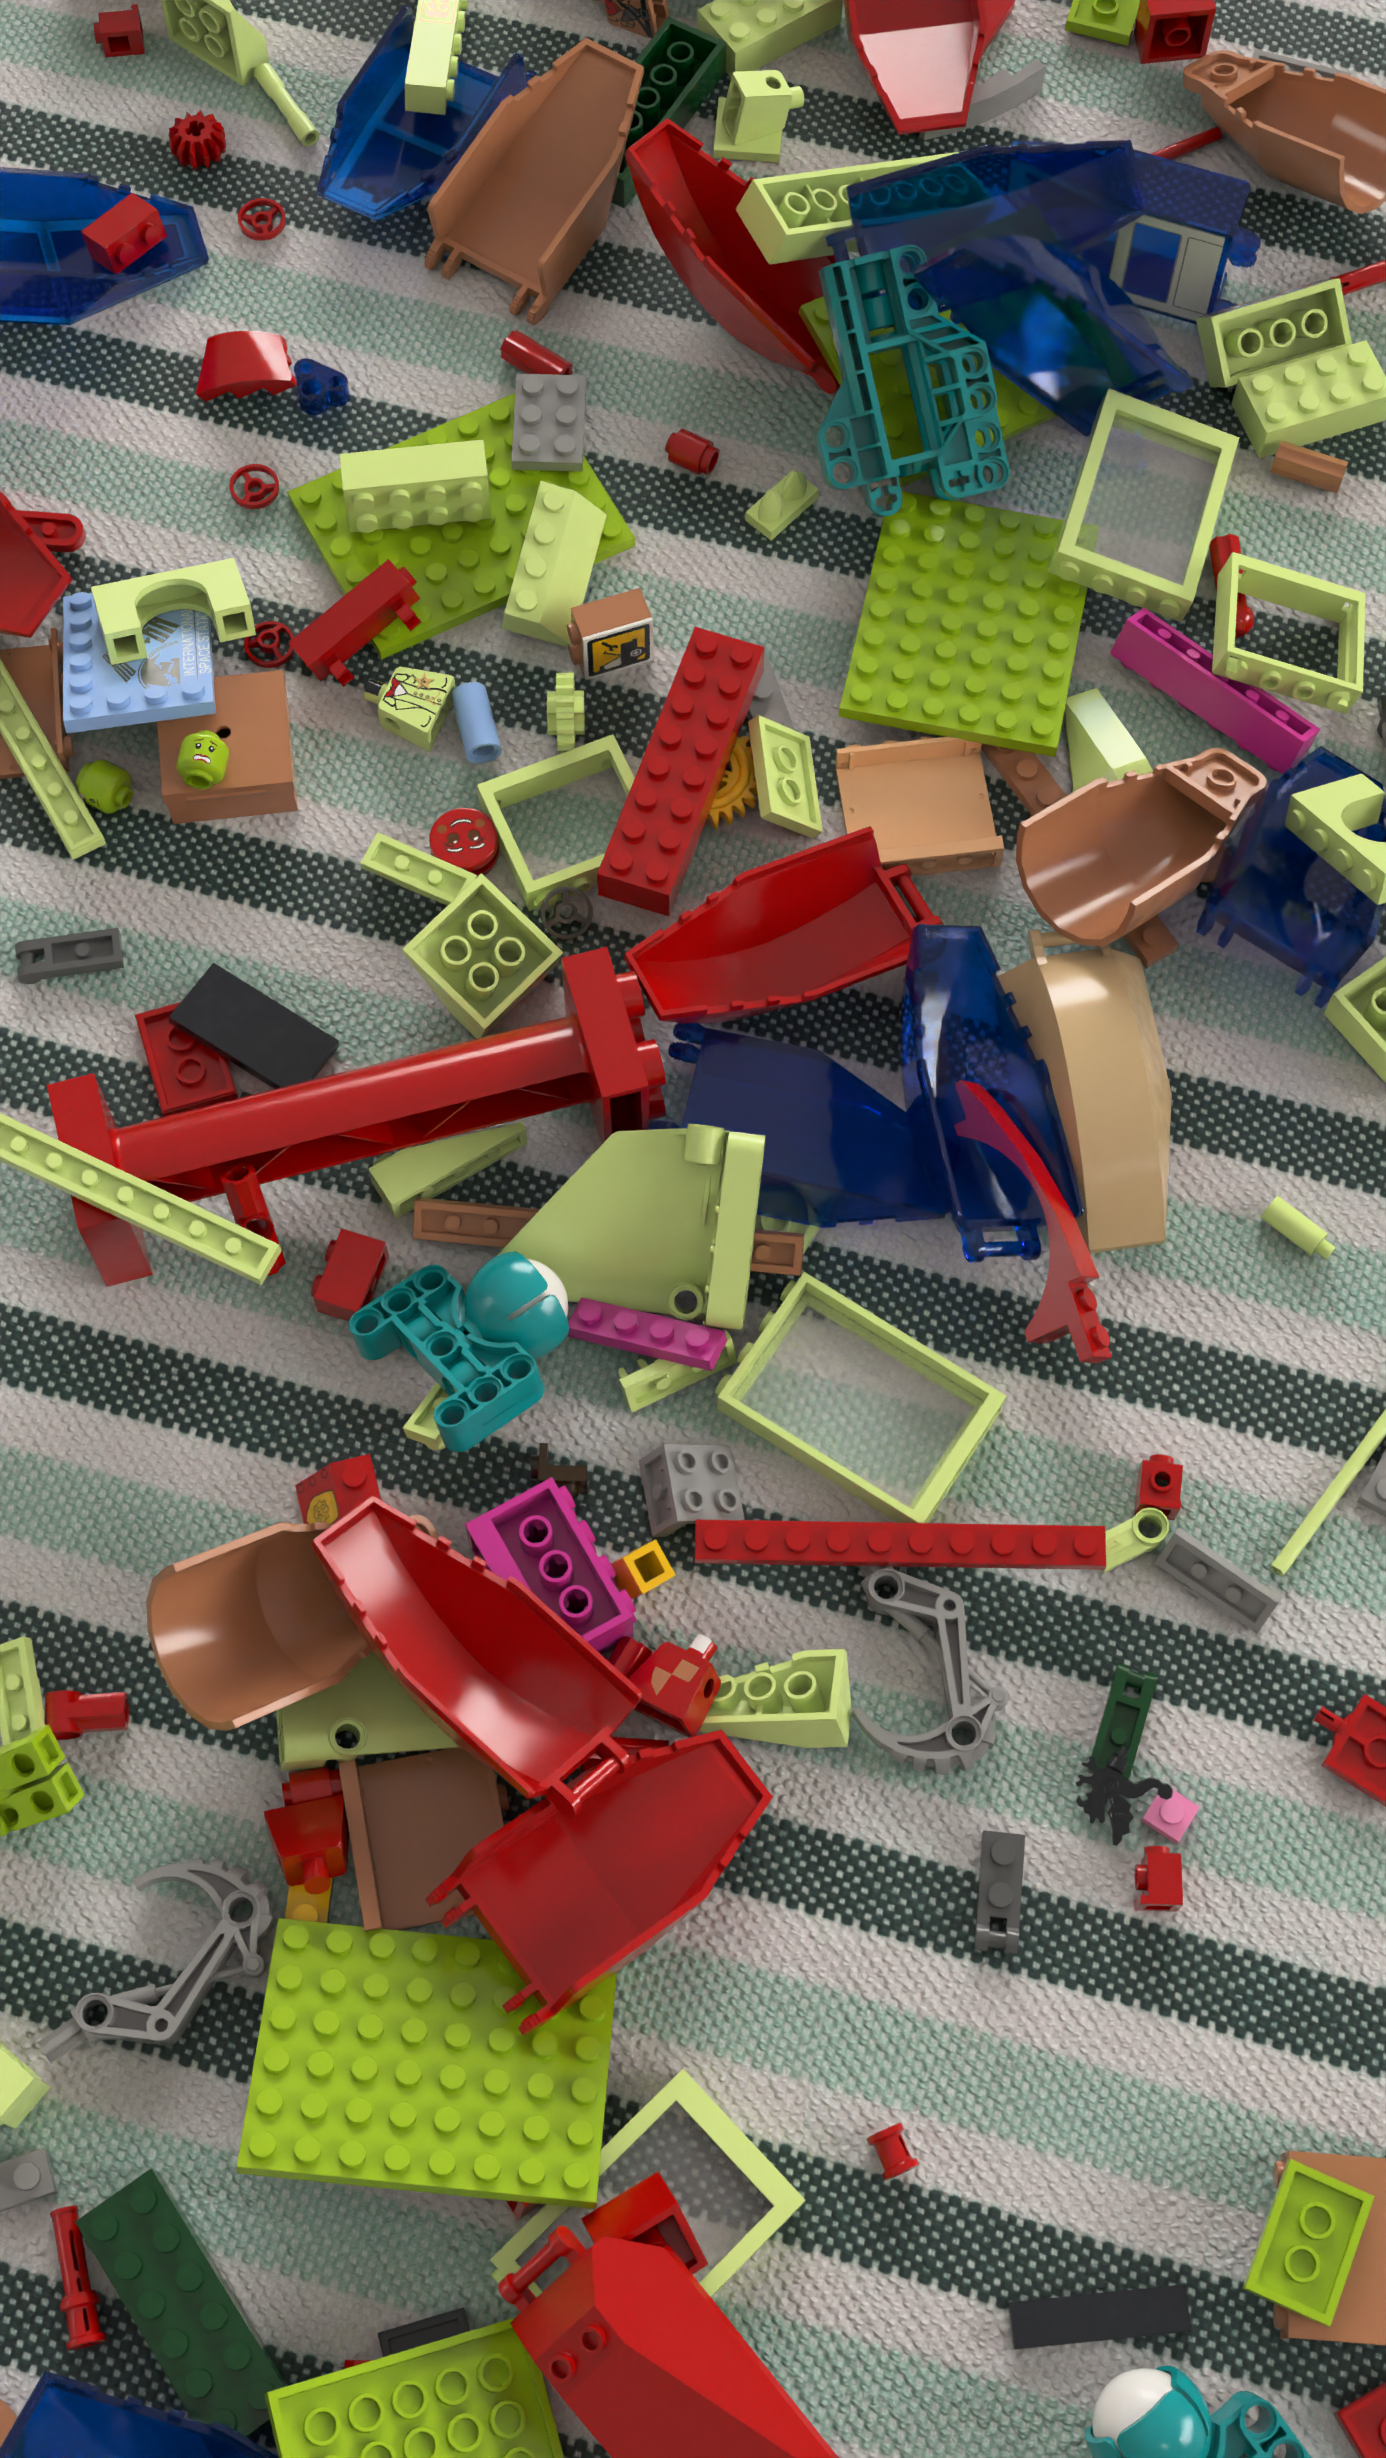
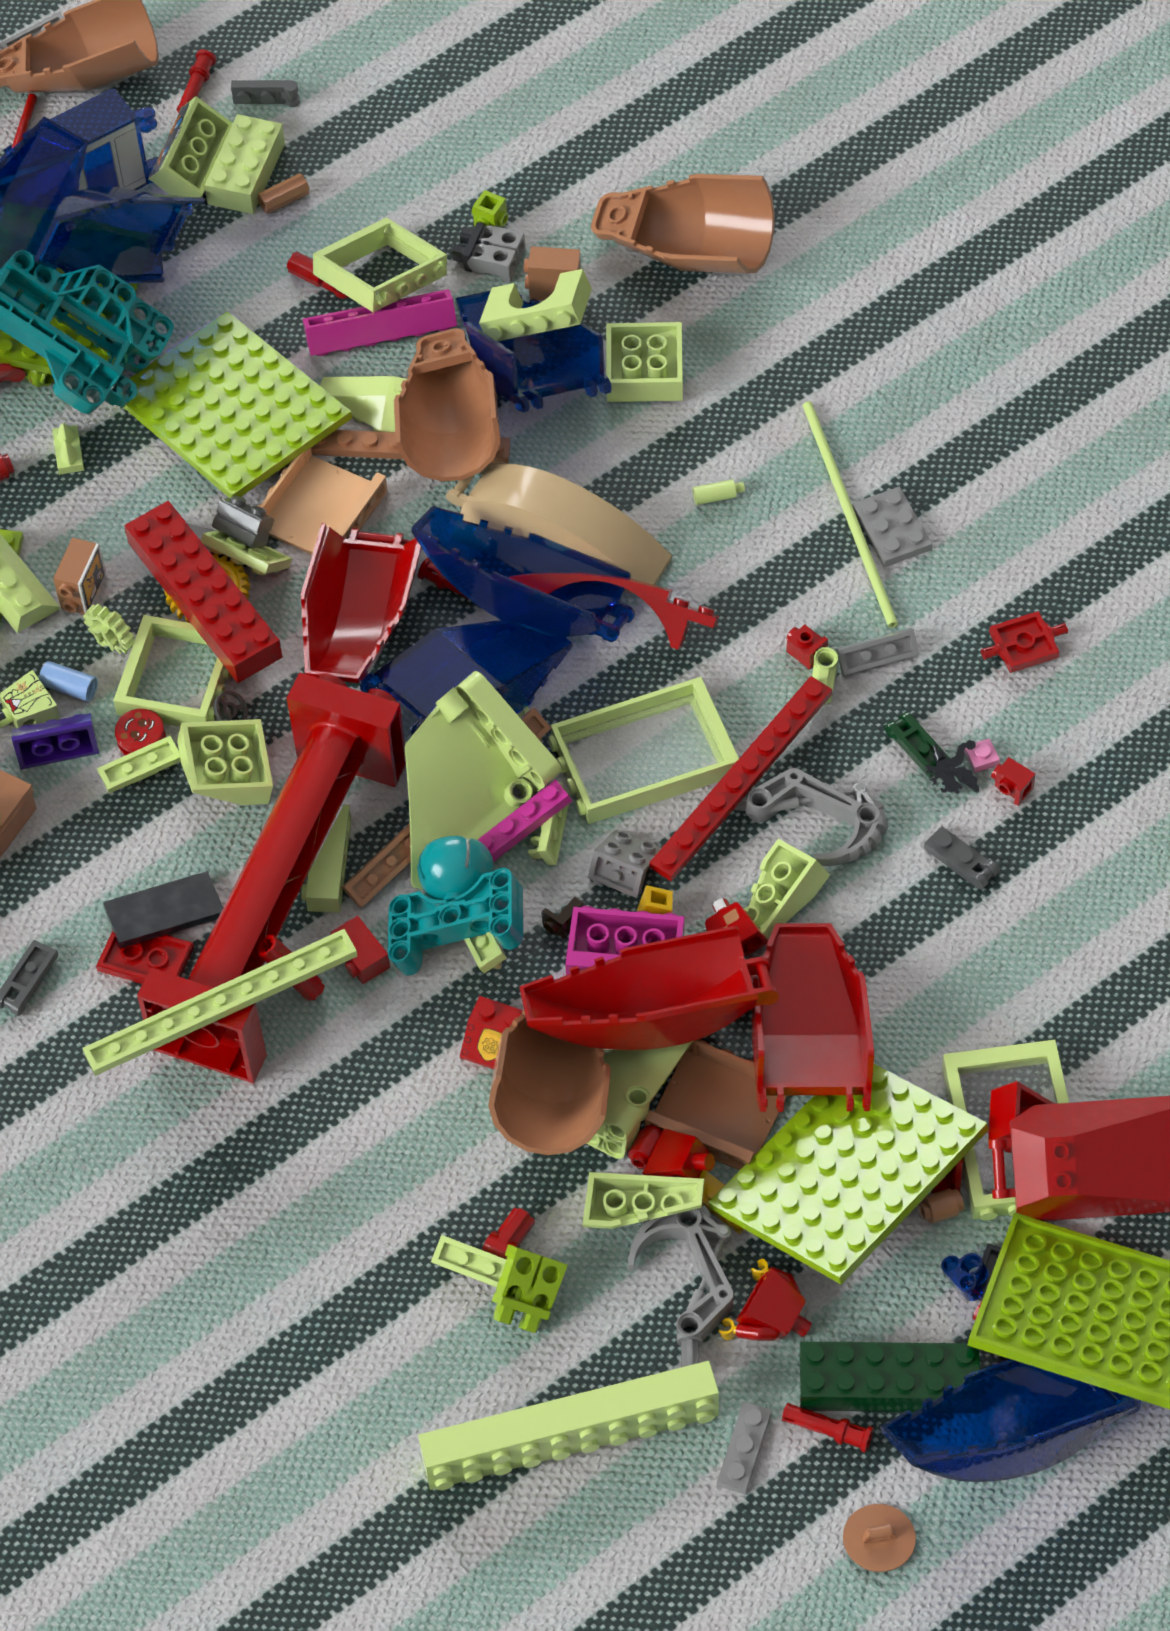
camera: 50 degrees left, 10 degrees down
(186, 2095) = (770, 1309): none -> red torso
(211, 1827) = (631, 1199): none -> yellowish green wedge
(384, 2310) = (958, 1274): none -> clear blue piece
(386, 763) = (55, 741): none -> dark purple slope
(476, 2216) = (941, 1205): none -> nougat brick
(815, 745) = (243, 522): none -> dark grey brick
(892, 2151) = (1059, 990): red bush -> none
(1144, 505) = (238, 278): window -> none

